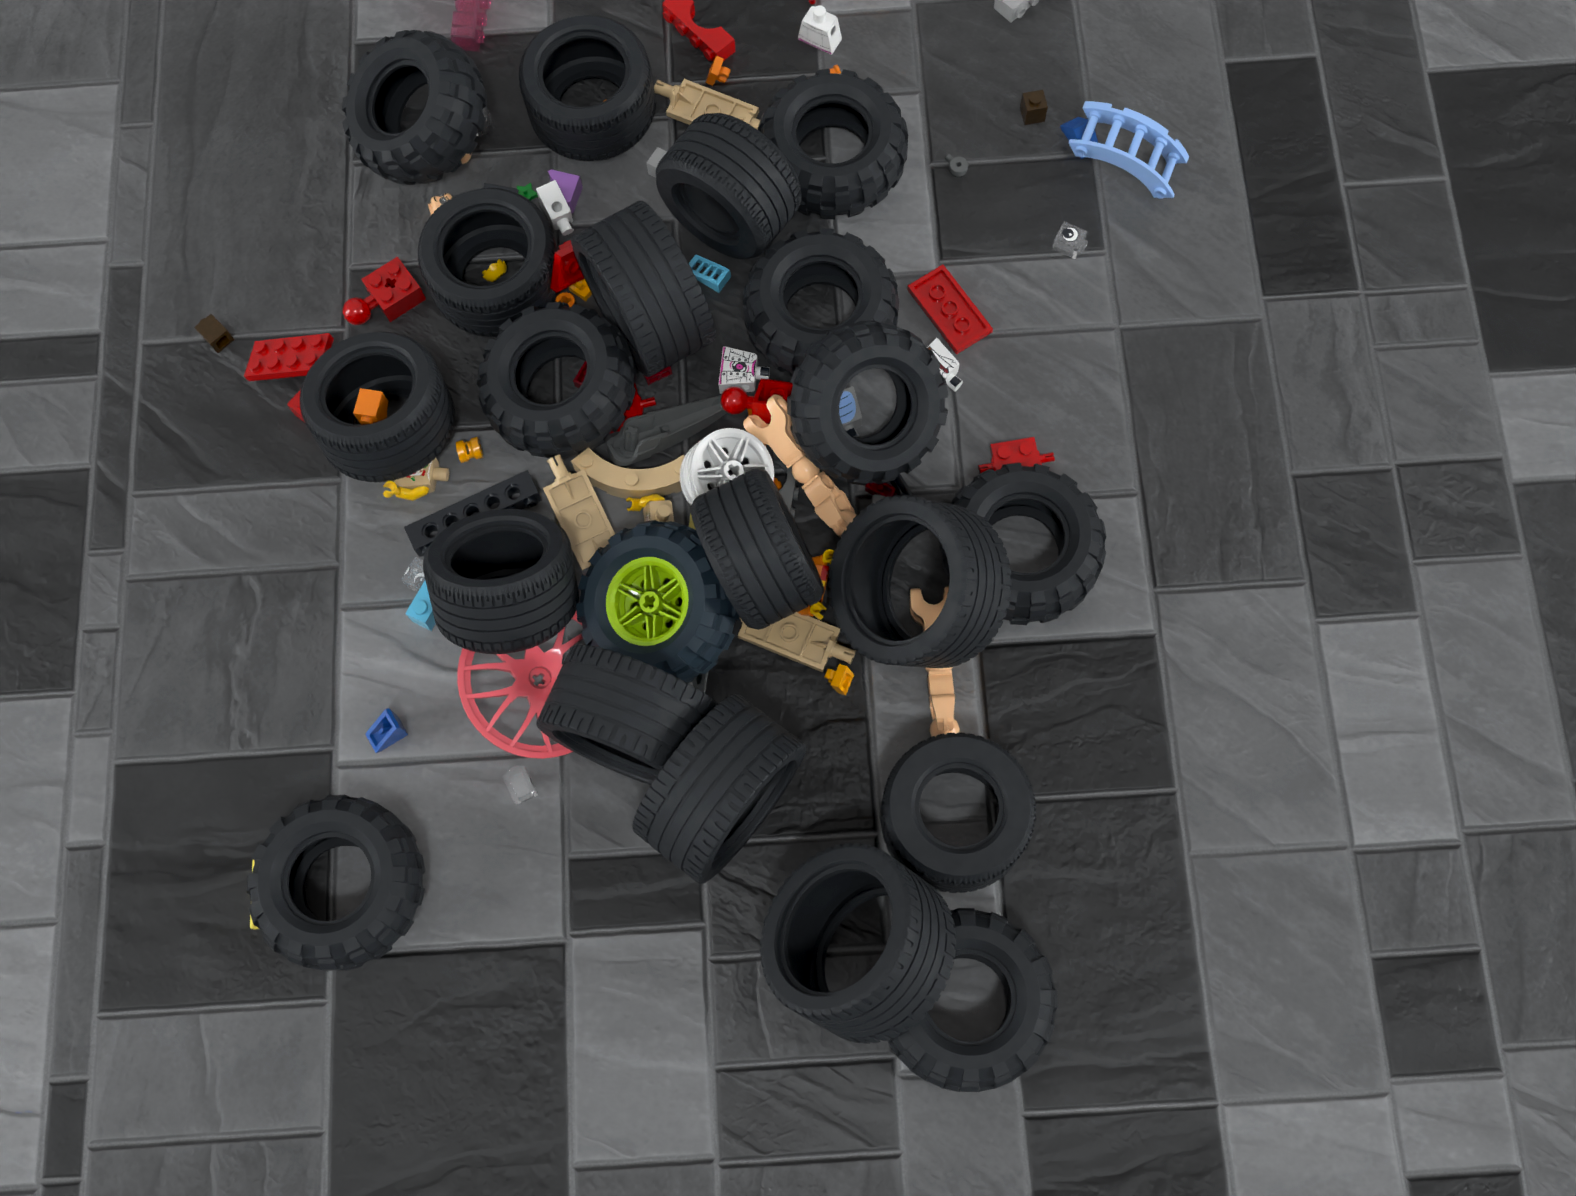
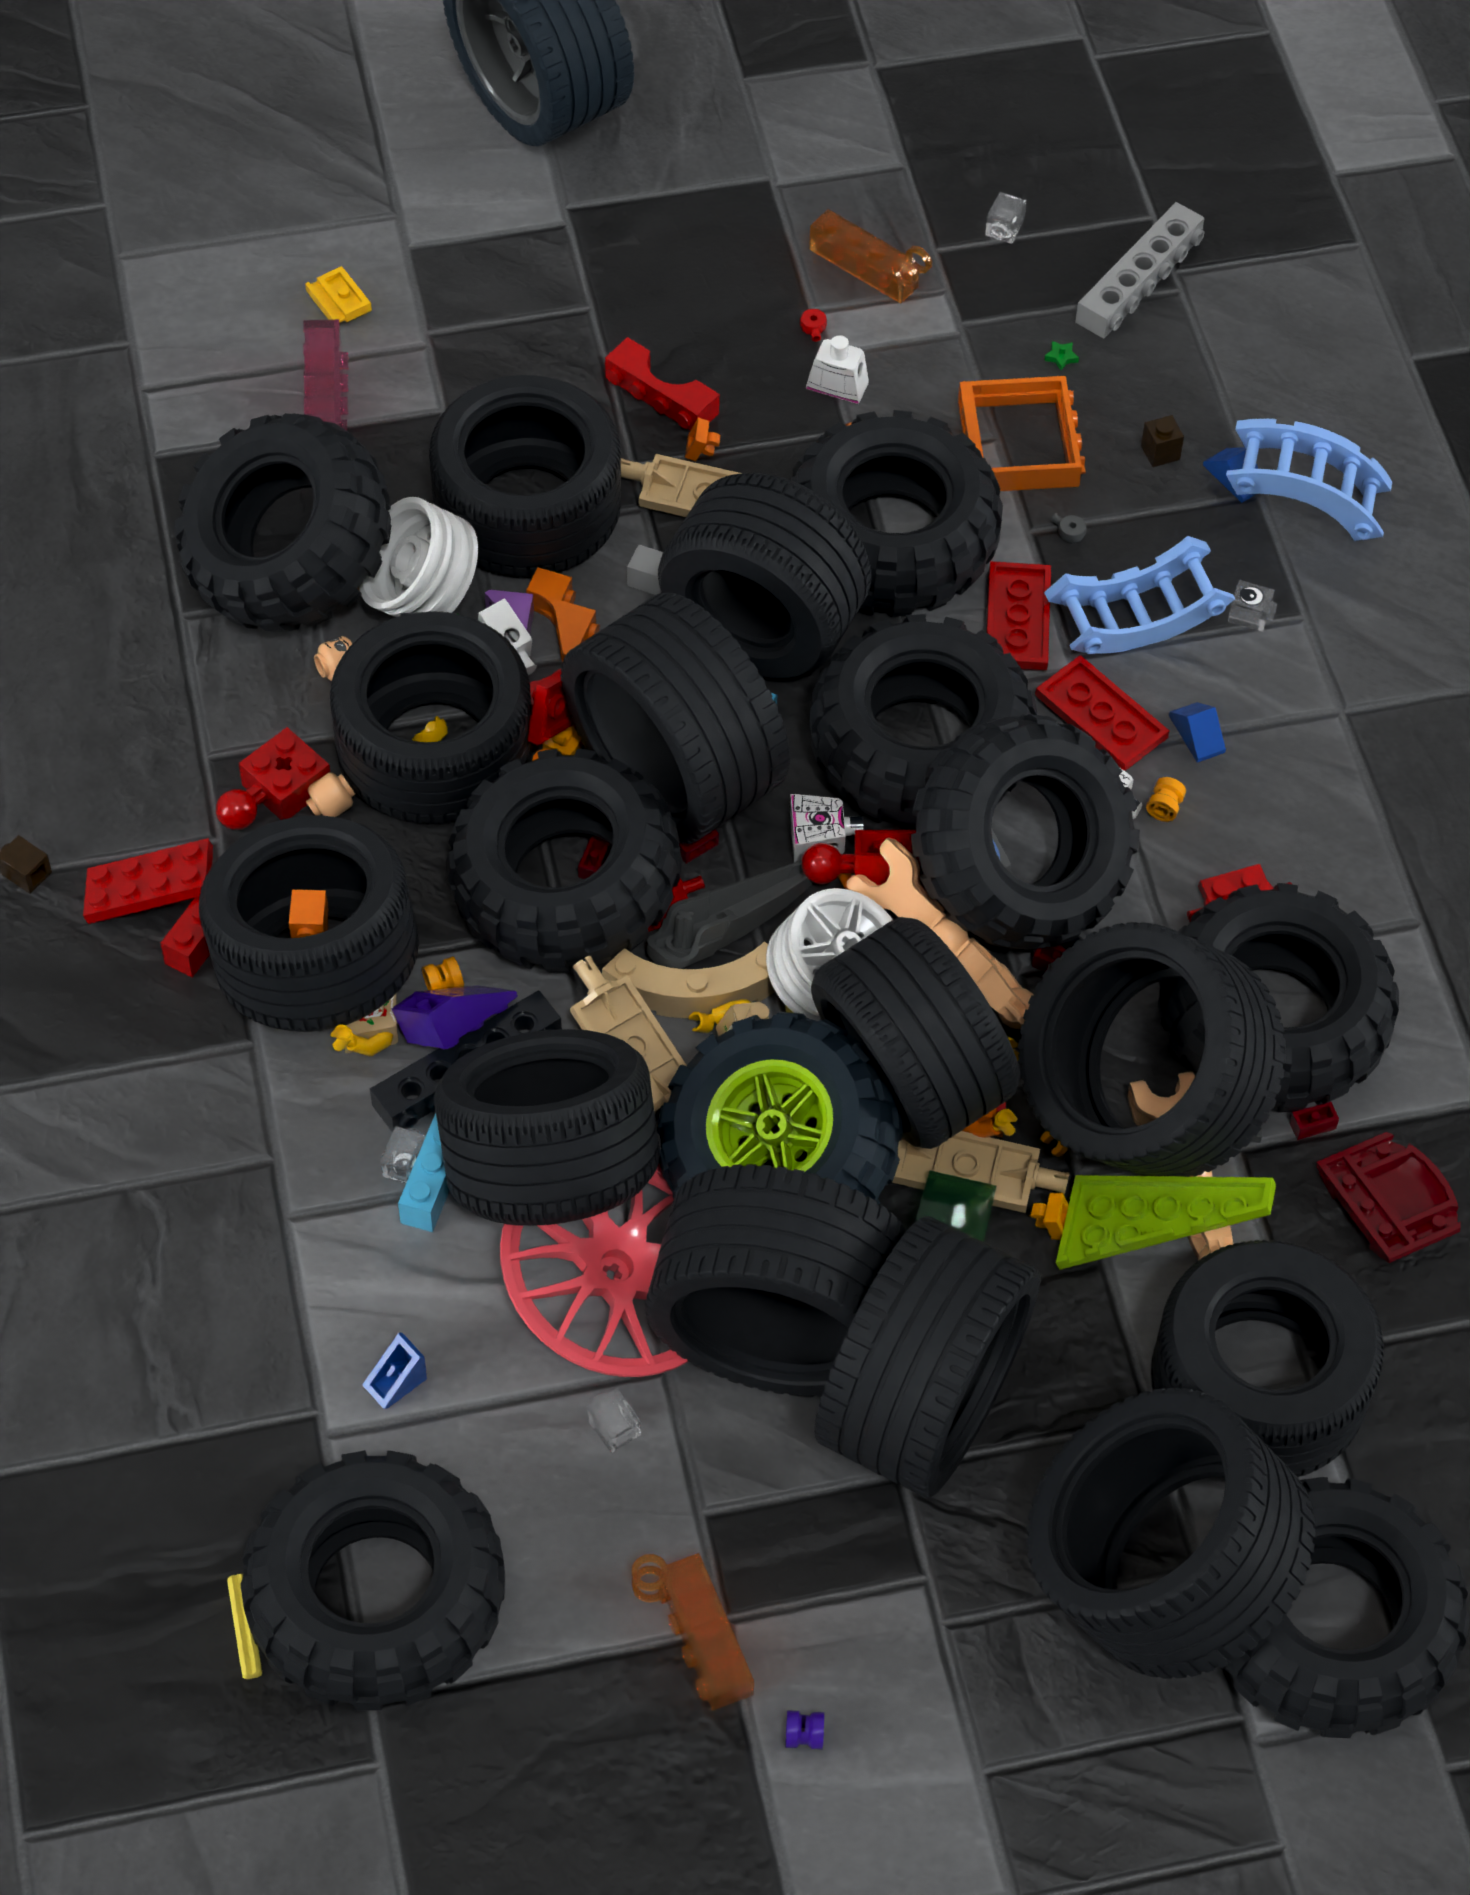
camera: 15 degrees left, 15 degrees down
(420, 308) = (330, 795): none -> light nougat head
(463, 479) = (445, 1015): none -> dark purple slope
(504, 147) = (425, 563): none -> white wheel
(549, 941) = (702, 1625): none -> clear orange hinge
(596, 179) = (555, 600): none -> orange arch
(601, 1023) = (813, 1732): none -> dark purple wheel
(772, 667) = (958, 1202): none -> clear green slope
(906, 689) = (1137, 1212): none -> lime wing
(907, 228) = (1020, 611): none -> red plate
(939, 58) = (1021, 392): none -> orange window
(978, 32) = (1061, 354): none -> green piece
(980, 379) = (1166, 797): none -> light orange wheel
(987, 214) = (1128, 584): none -> light blue fence
(1014, 329) = (1200, 730): none -> blue slope
(1032, 632) = (1314, 1120): none -> dark red piece
(1073, 697) = (1392, 1195): none -> dark red slope

